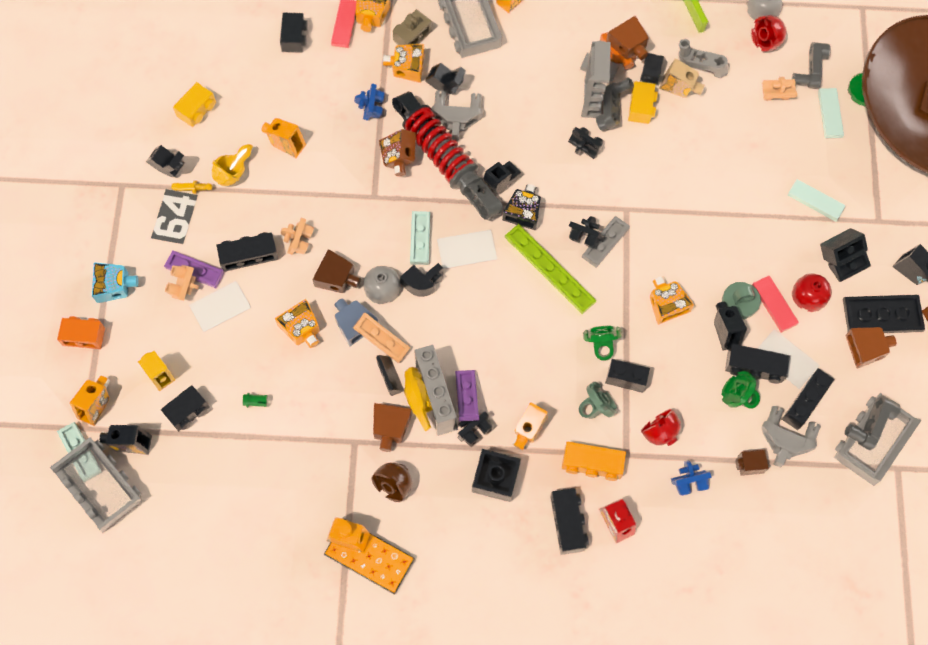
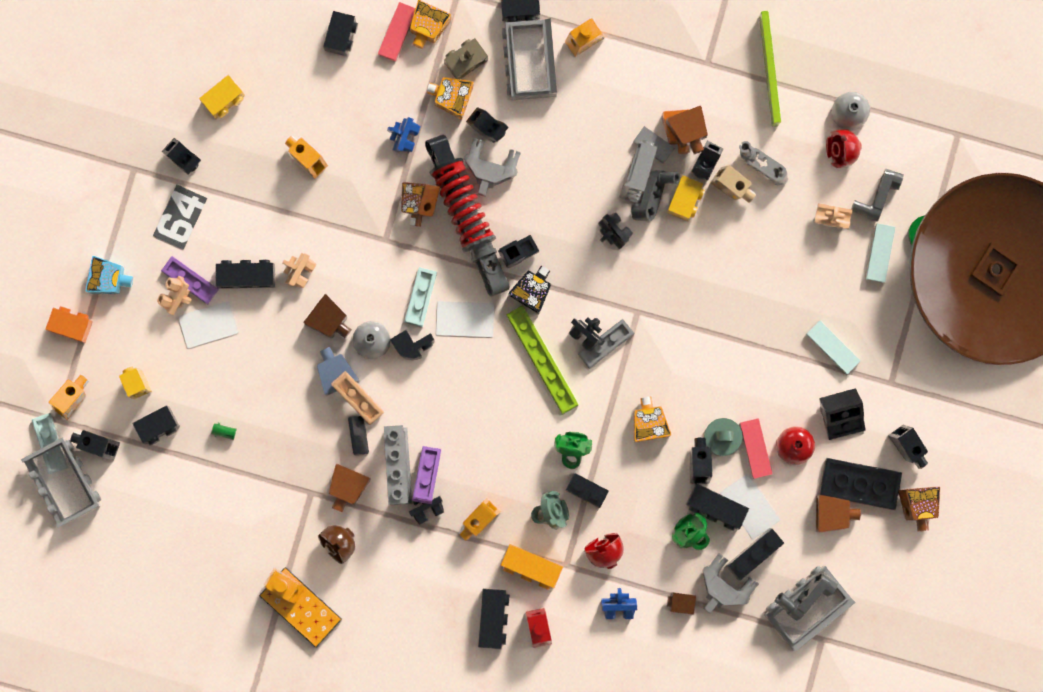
camera: 10 degrees right, 15 degrees up
(191, 186) = (205, 189): yellow piece -> none
(229, 168) = (245, 178): yellow piece -> none
(299, 324) = (282, 364): torso -> none
(417, 396) = (377, 466): yellow animal -> none
(496, 475) = (435, 560): black brick -> none

